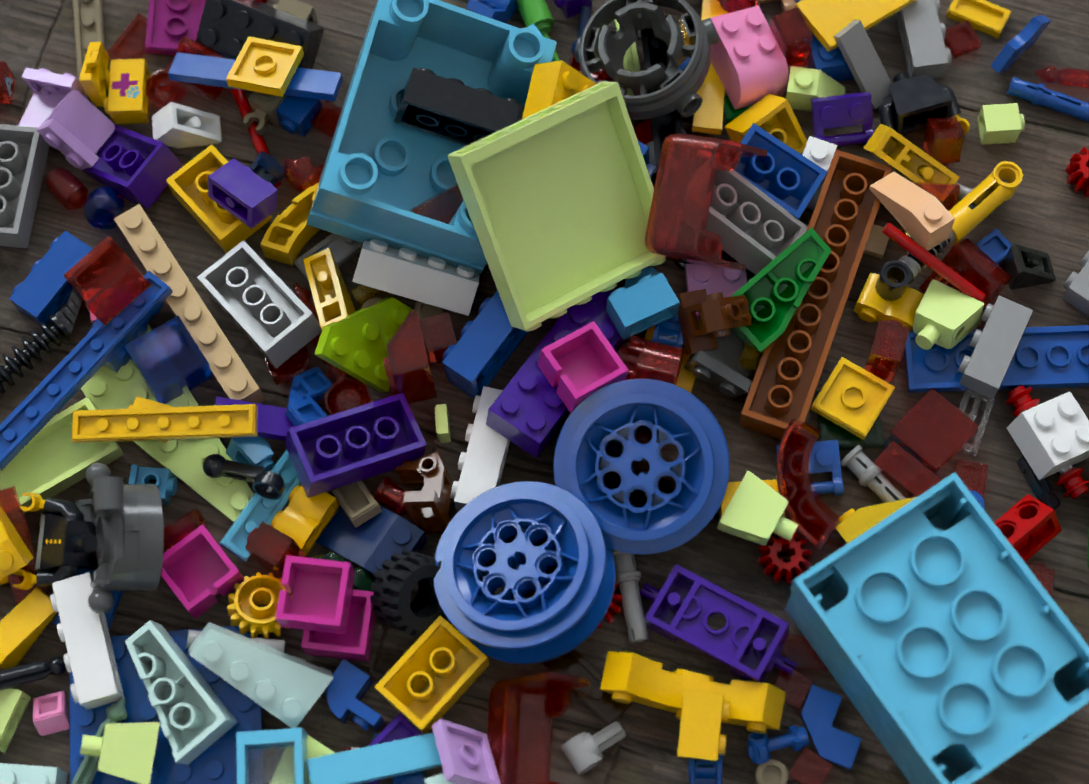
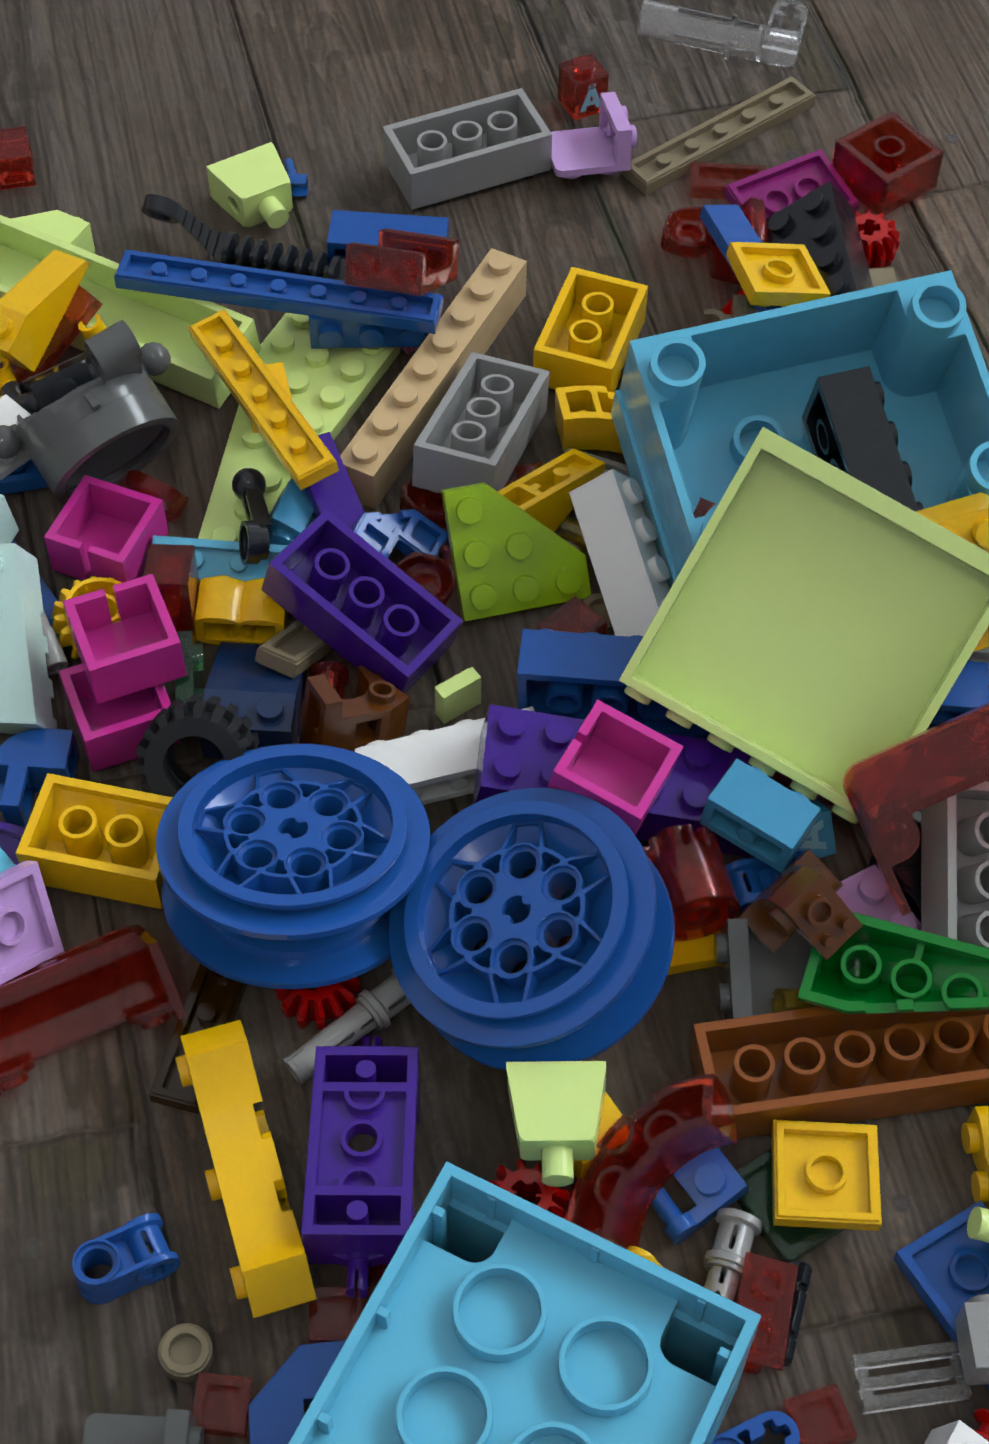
camera: 55 degrees right, 15 degrees down
(66, 188) = (504, 203): clear red brick -> none
(77, 130) = (576, 170): lavender bracket -> none
(93, 73) = (655, 152): yellow wing -> none
(104, 206) = (503, 235): clear blue head -> none
(127, 91) = (651, 198): yellow brick -> none
(134, 166) = (572, 239): dark purple slope -> none
(165, 480) = (195, 446): dark azure brick -> none
(169, 360) = (346, 371): clear blue piece -> none
(185, 126) = (658, 261): white slope -> none
(242, 193) = (601, 329): dark purple brick -> none
(409, 363) = (501, 595): clear red slope -> none
(586, 750) = (100, 1081): light grey axle -> none
(702, 725) = (195, 1194): yellow brick -> none
(760, 745) = (217, 1312): blue bar -> none
(887, 349) = (929, 1180): clear red brick -> none
(935, 430) = (857, 1324): clear red tile -> none

